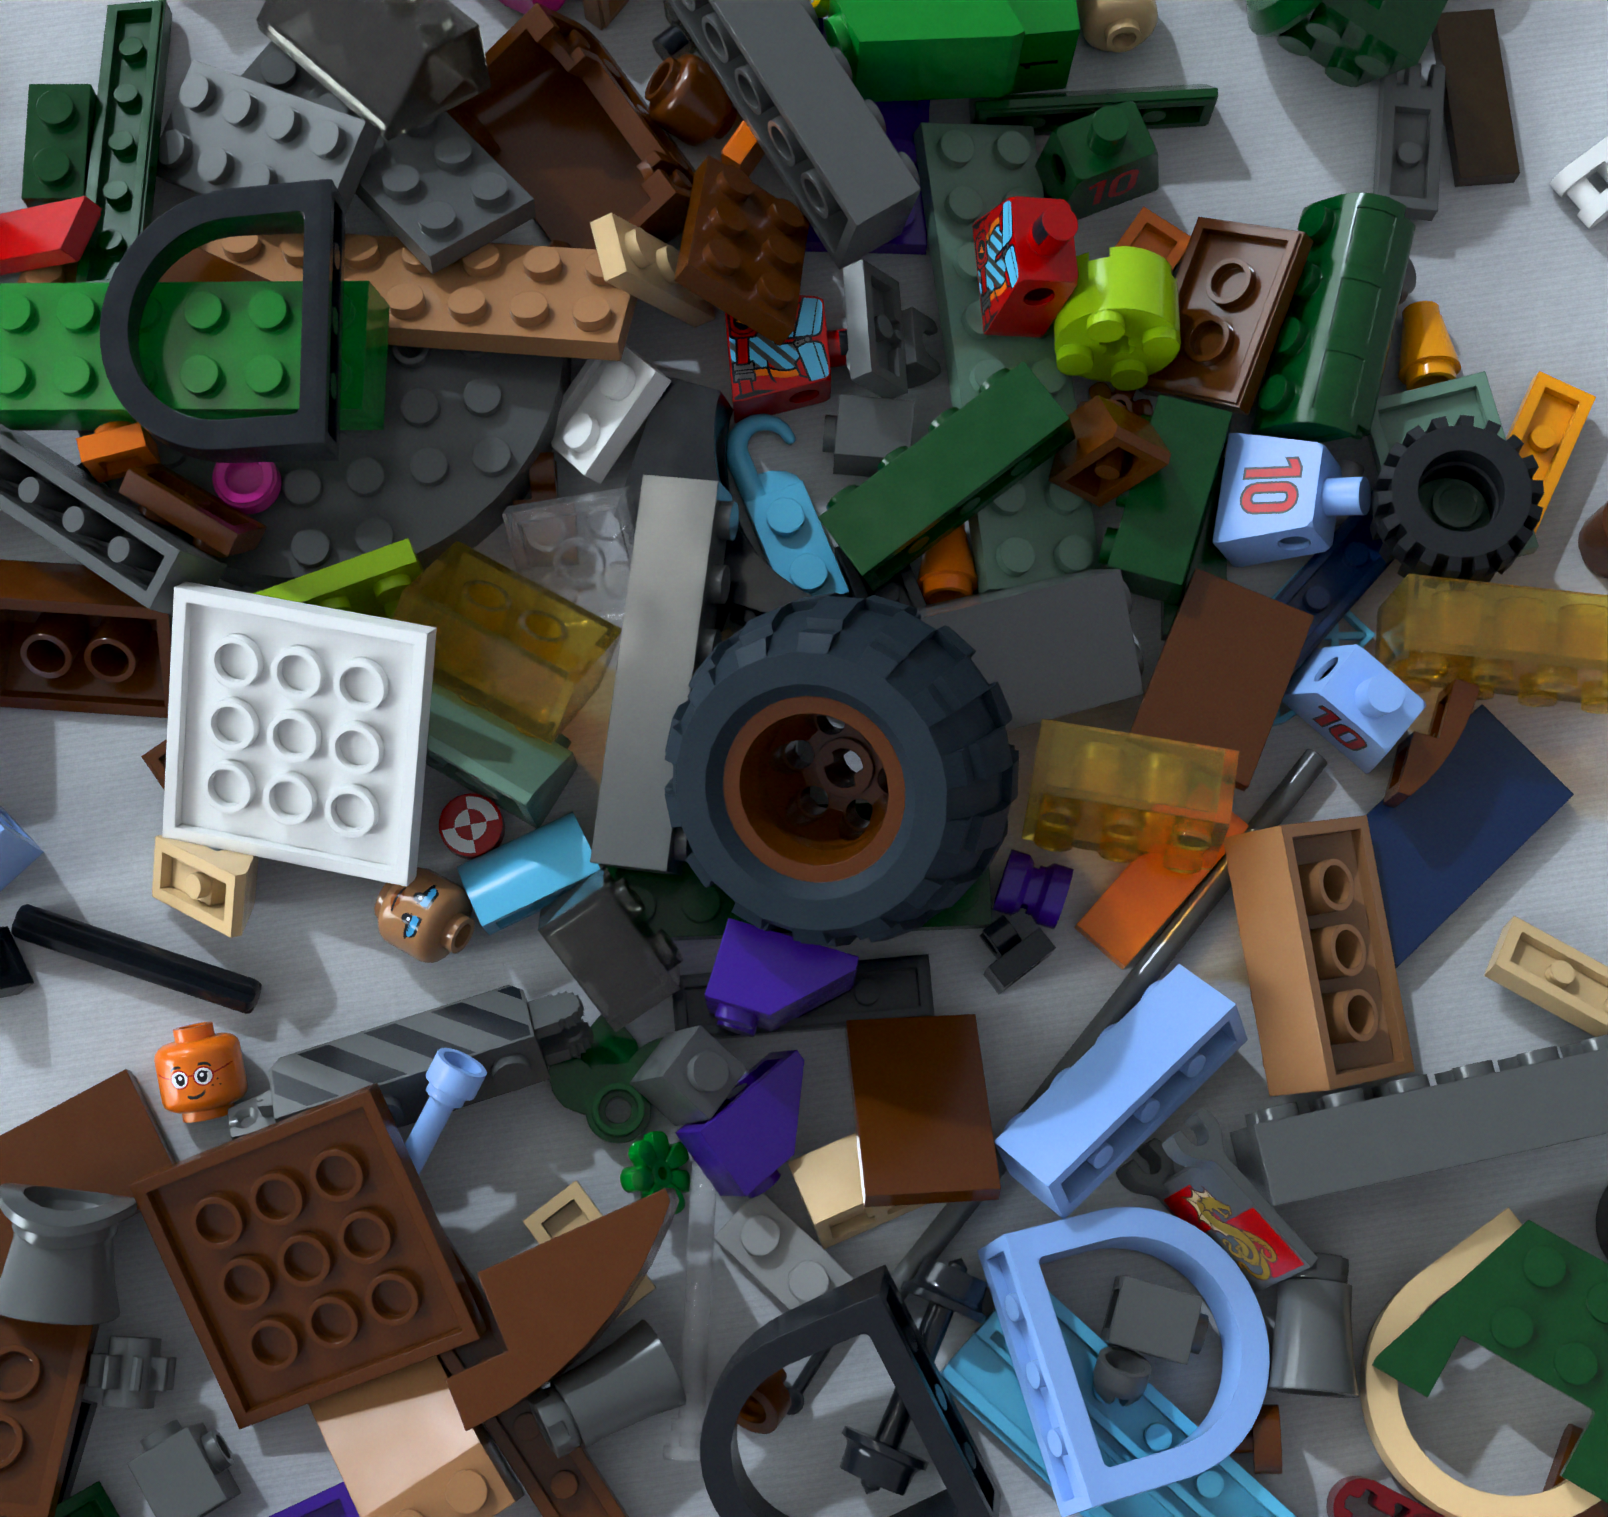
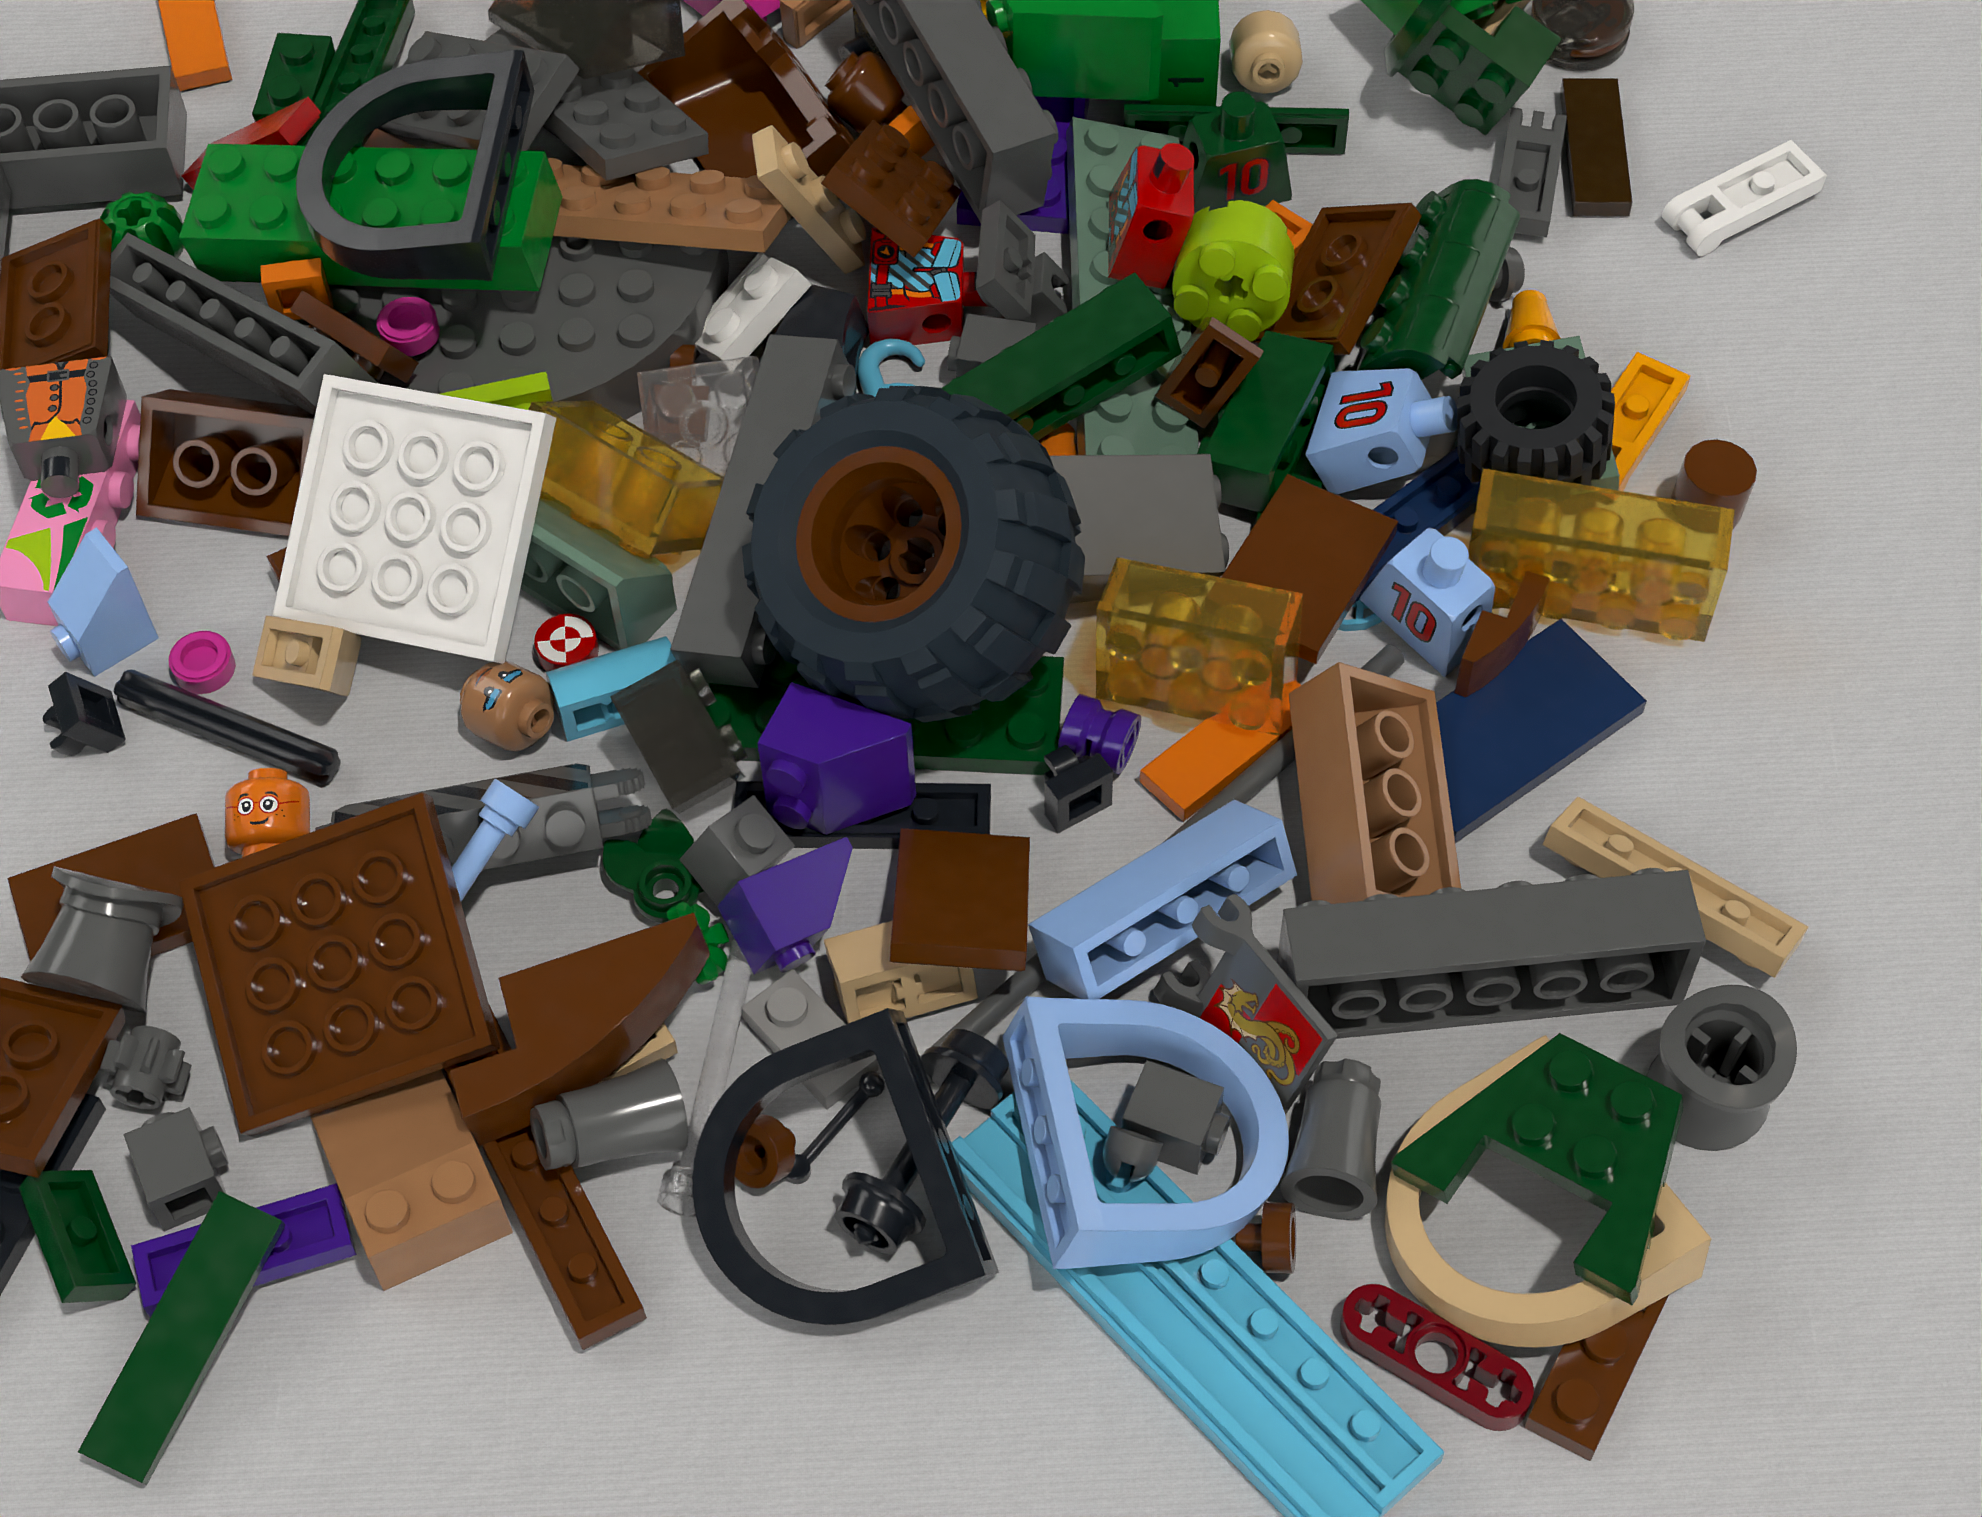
camera: 10 degrees right, 20 degrees down
(95, 881) = (202, 662): none -> dark pink tile

